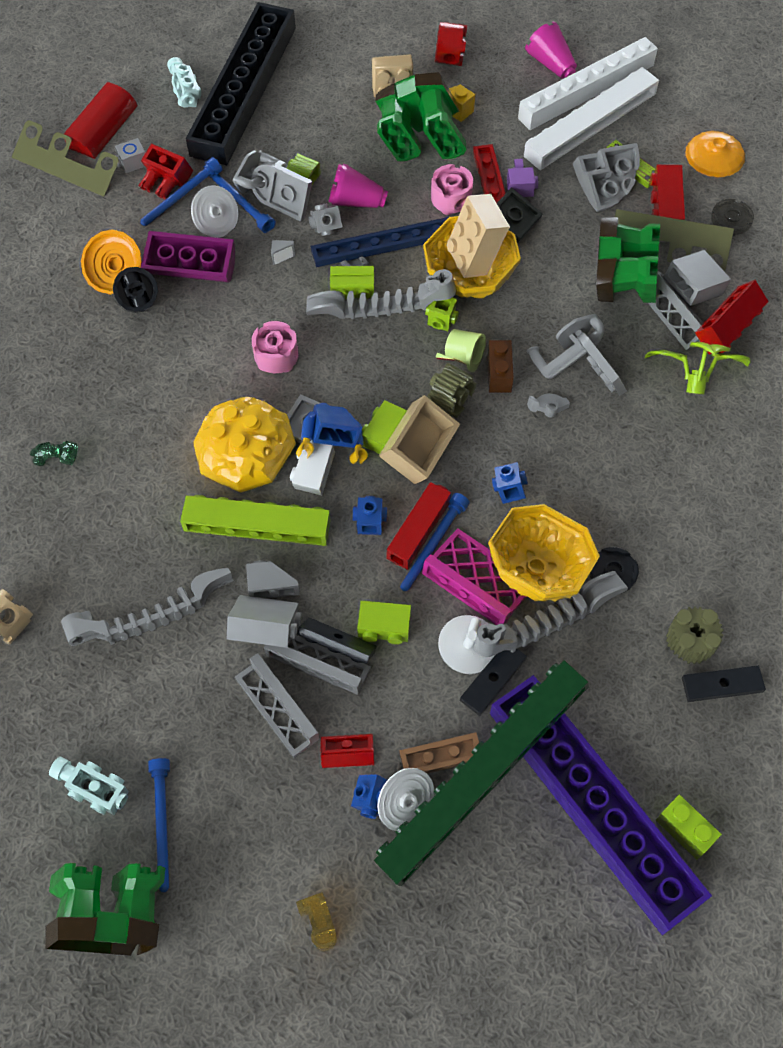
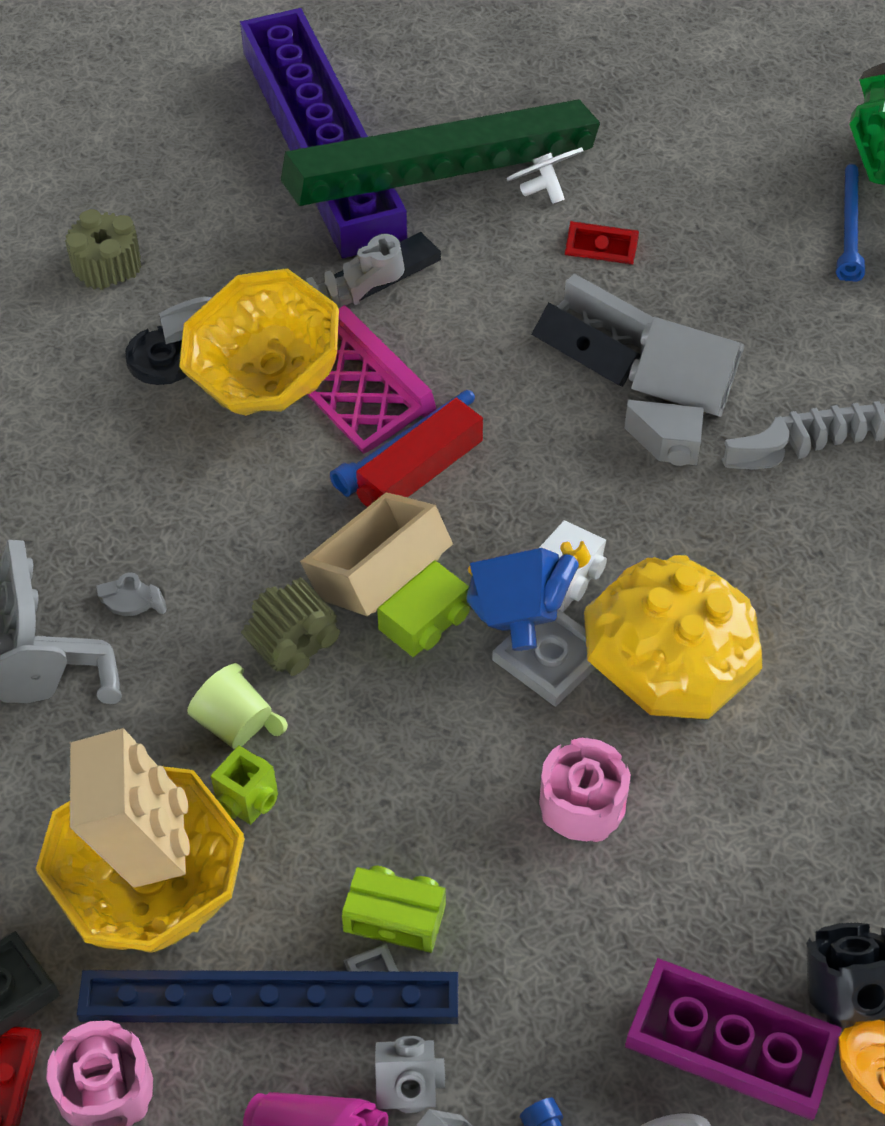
camera: 165 degrees left, 10 degrees down
(256, 520) = (675, 516): lime brick -> none
(282, 250) = (521, 1024): slope -> none
(285, 700) = (673, 294): light grey fence -> none
(323, 931) = (672, 106): clear yellow leg -> none
(367, 795) = (582, 181): blue brick -> none
(369, 515) = (492, 477): blue brick -> none
(384, 622) = (512, 350): lime piece -> none
(436, 288) = (261, 796): light grey piece -> none
(439, 754) = (485, 210): medium nougat plate -> none
(457, 645) = (405, 311): white shield -> none
(500, 366) = (183, 662): reddish brown brick -> none
(510, 477) = (257, 475): blue brick -> none
(688, 827) = (227, 93): lime piece -> none
(737, 680) = (69, 203): black tile -> none

